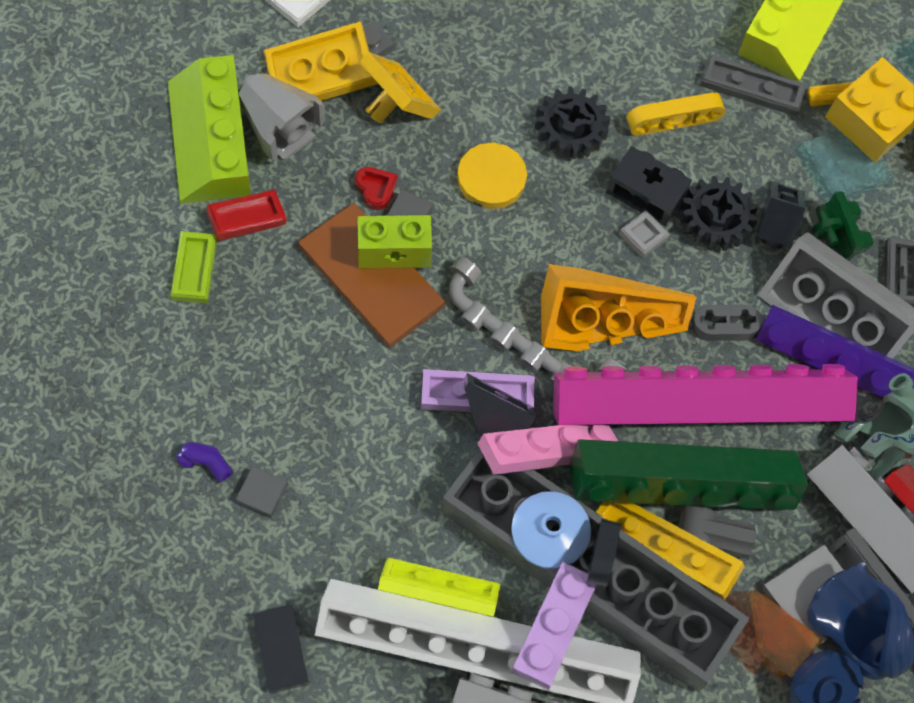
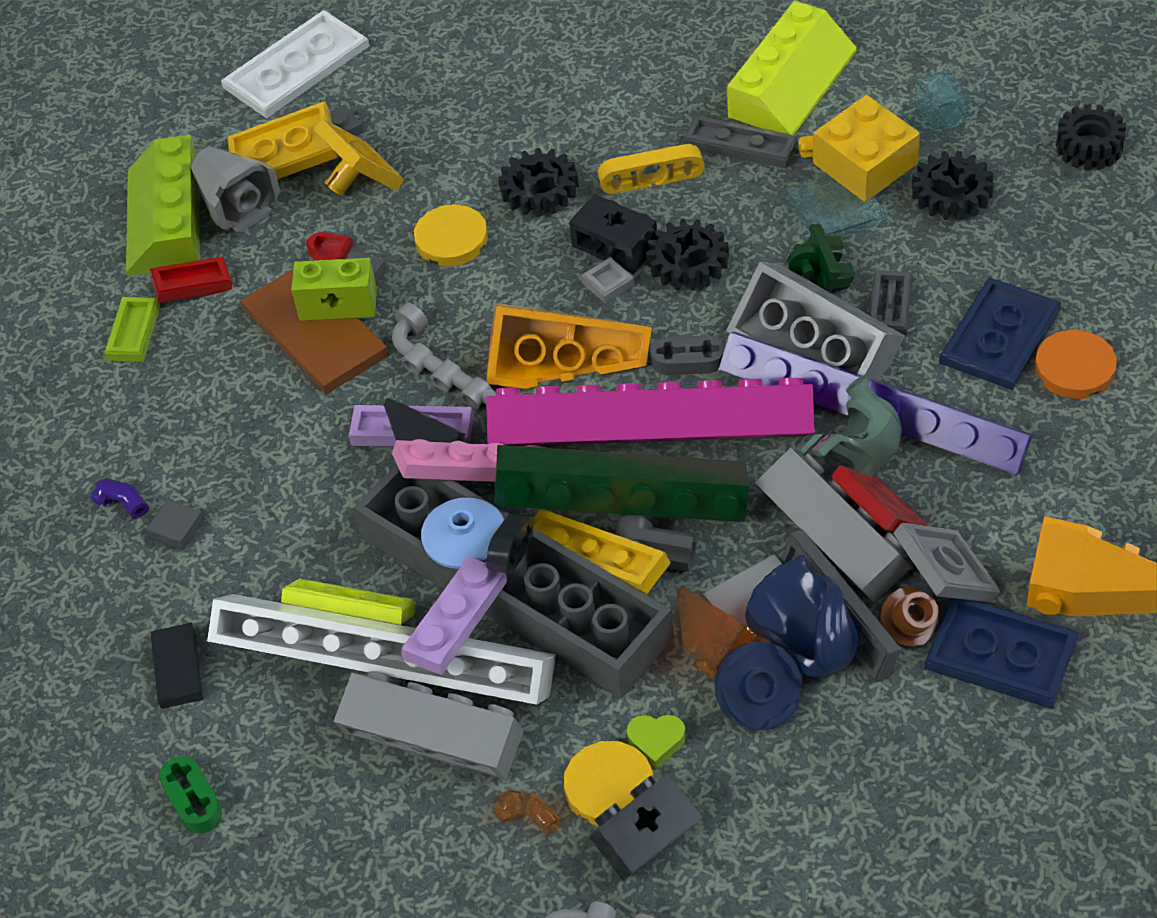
camera: 15 degrees right, 15 degrees down
(781, 215) = (749, 248): black slope -> none

